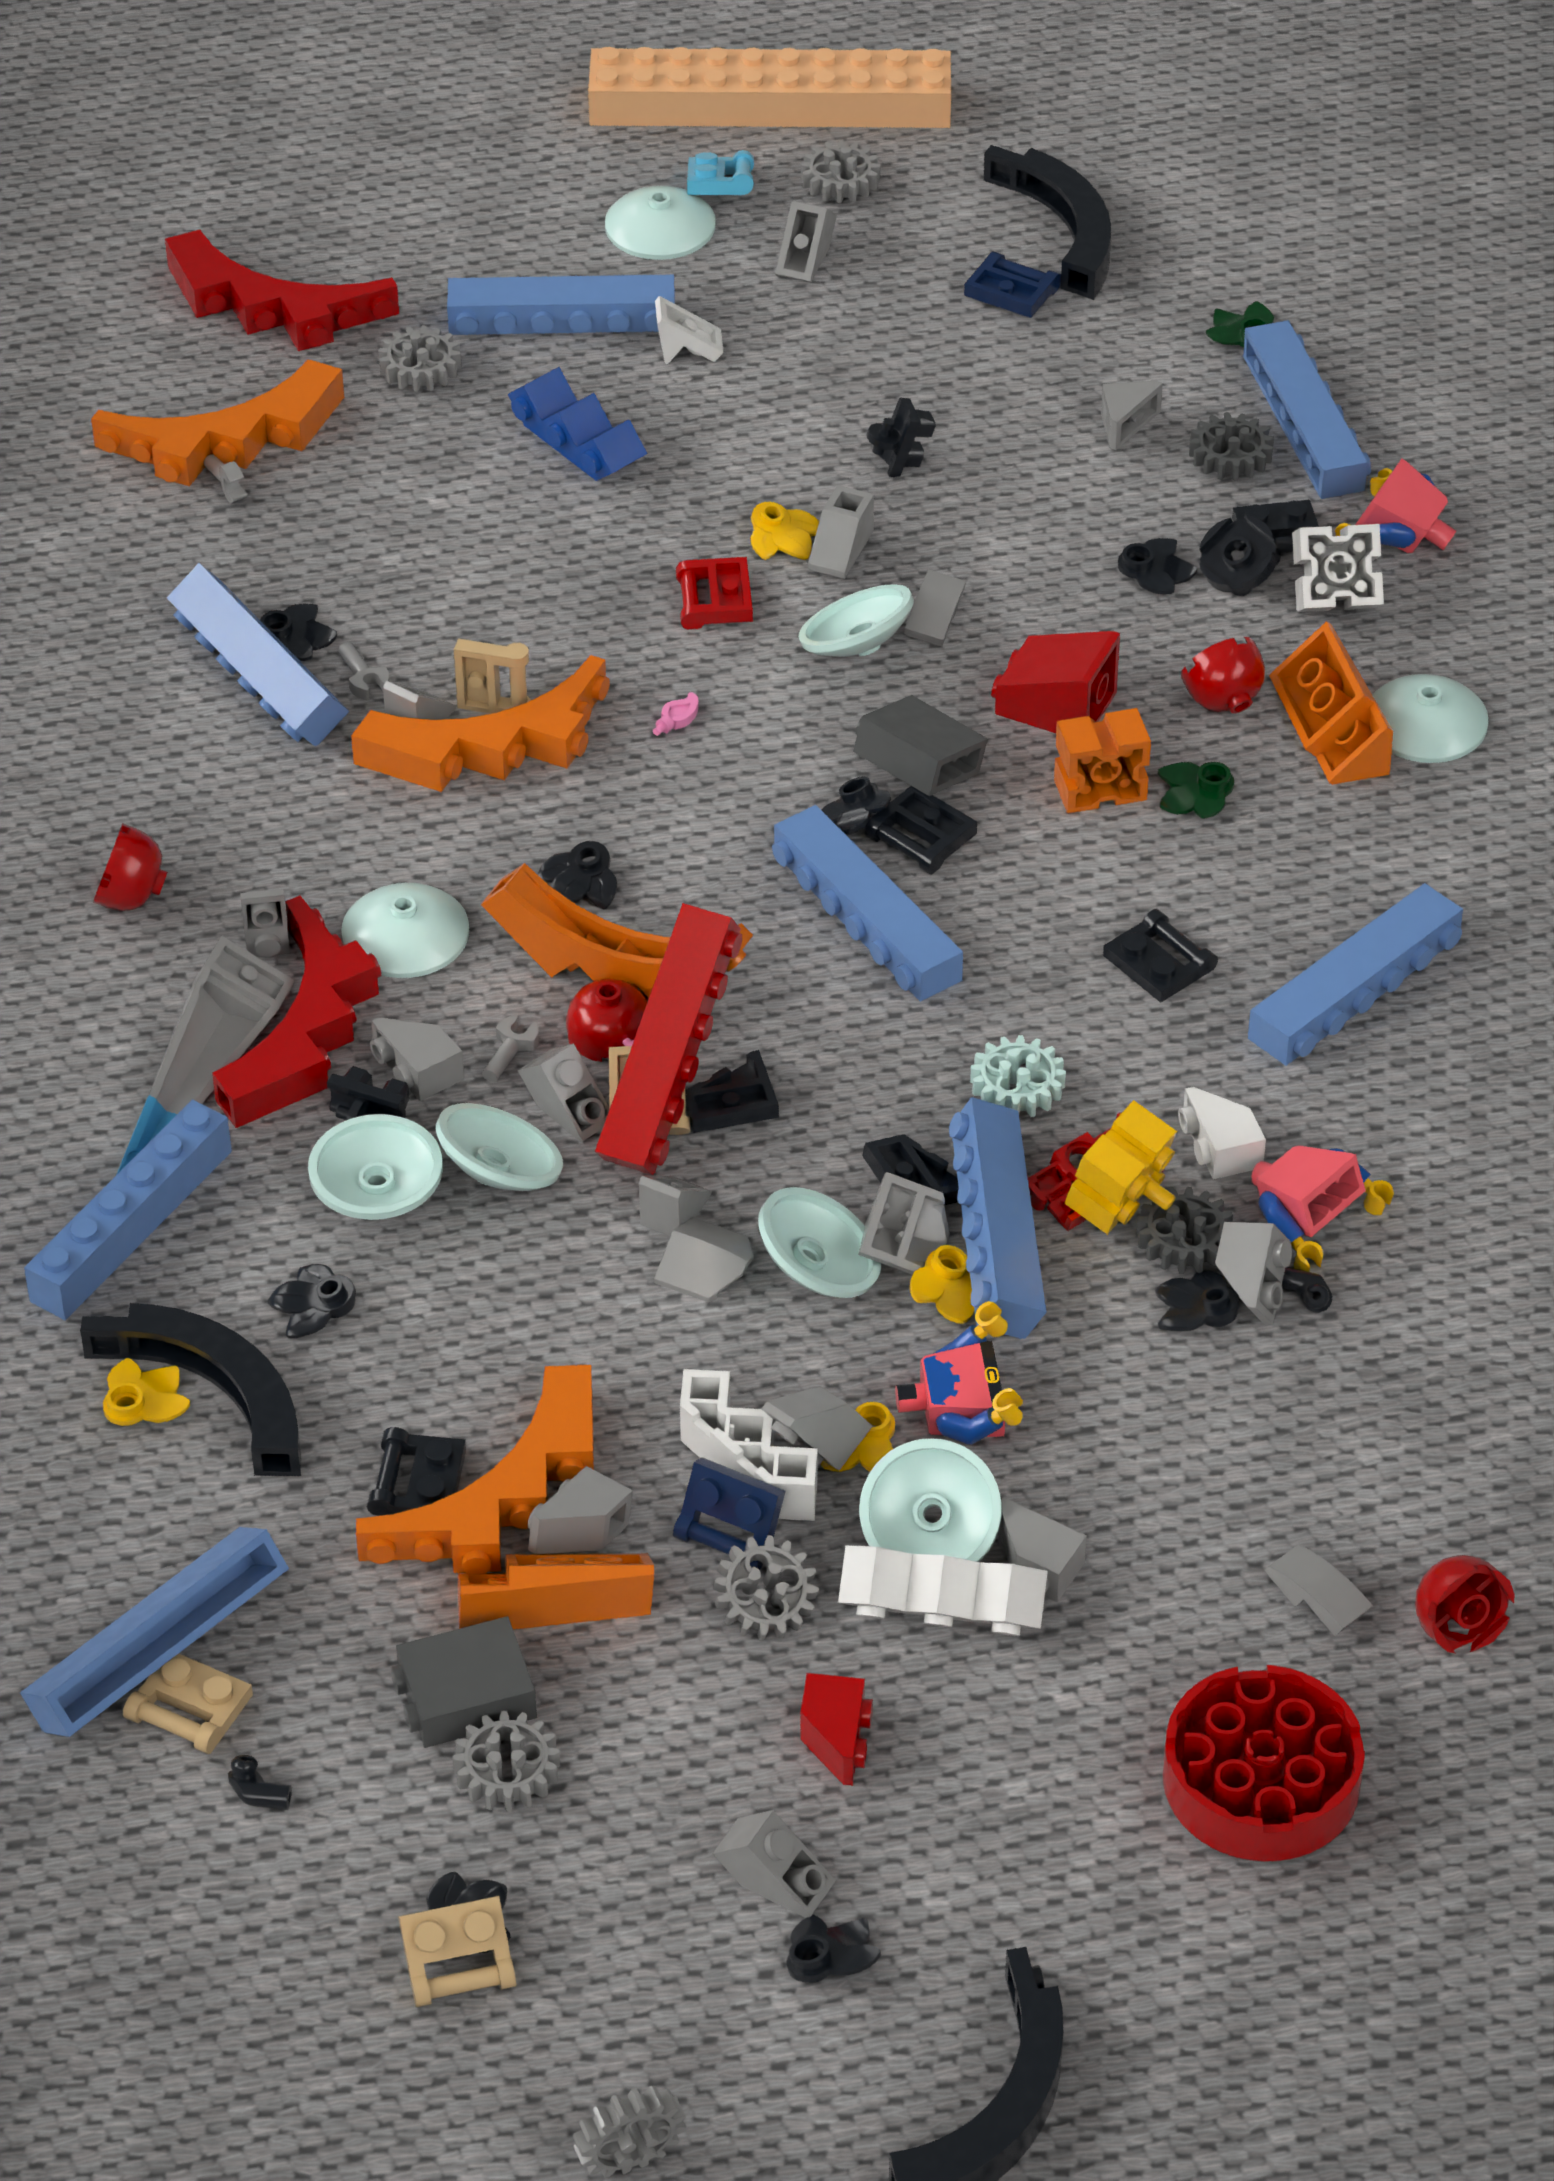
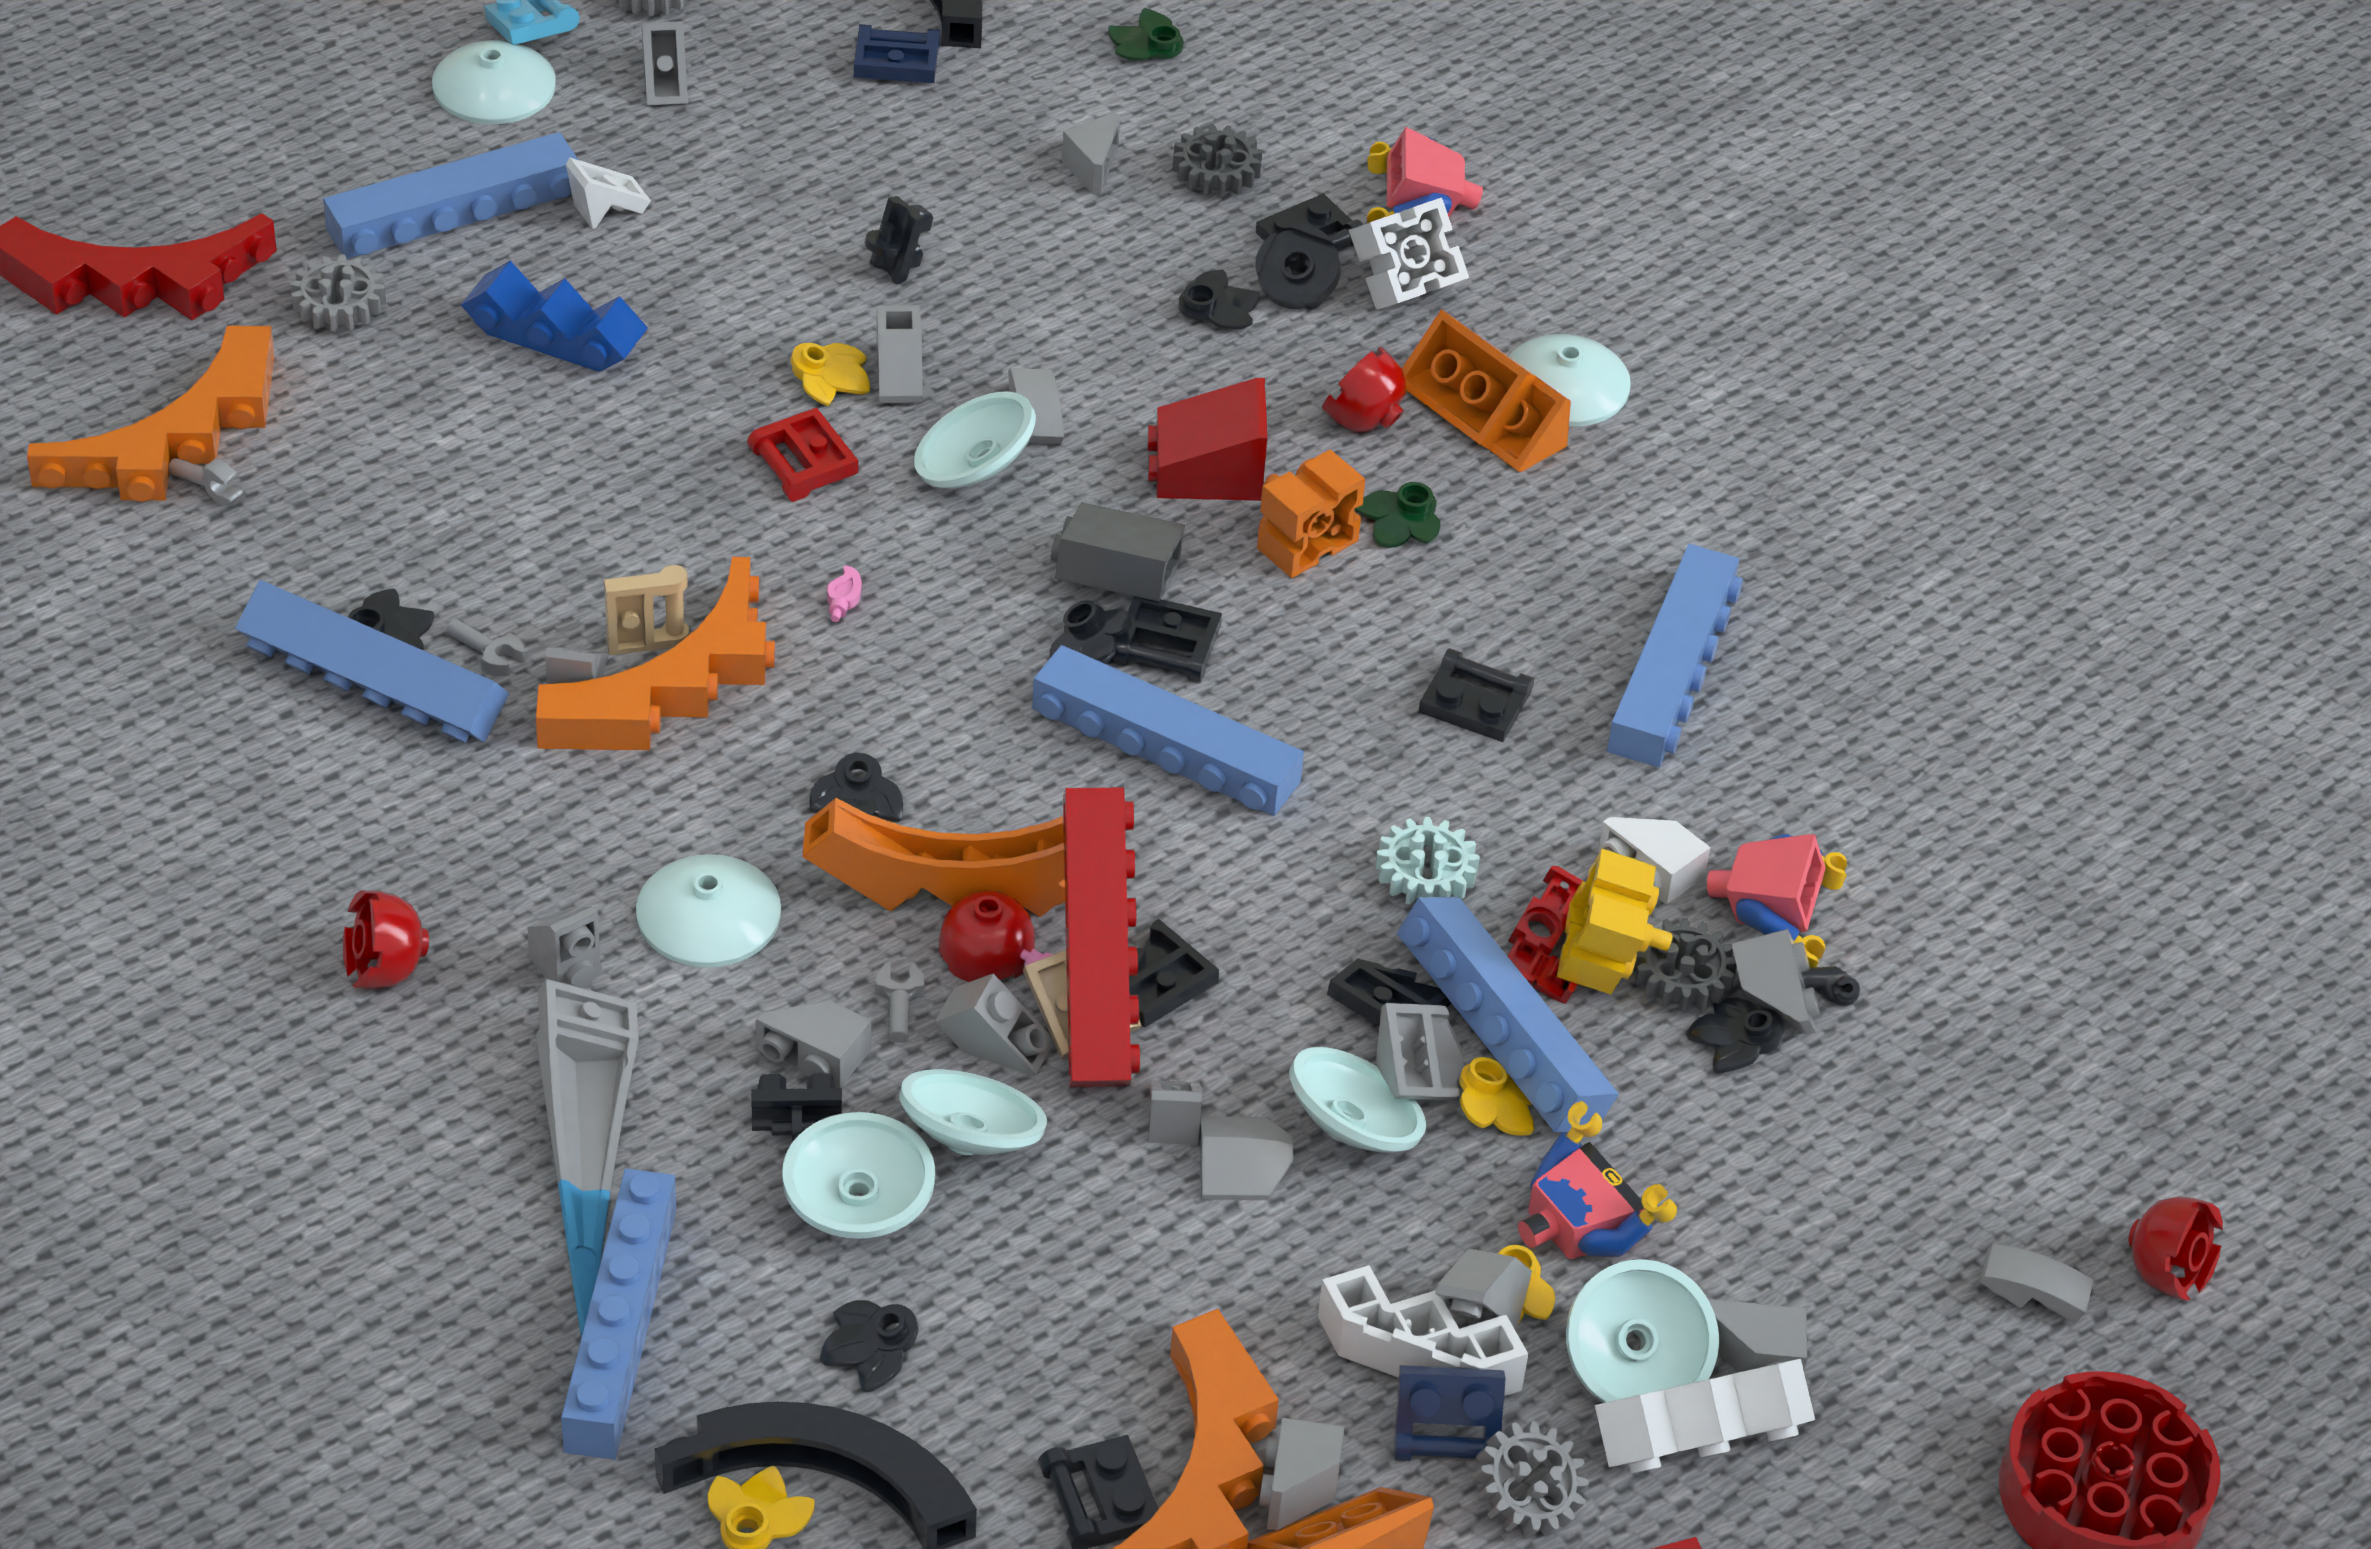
camera: 30 degrees left, 0 degrees up
(294, 1055) = (688, 1089): red arch -> none
(1306, 409) = (1263, 104): medium blue brick -> none

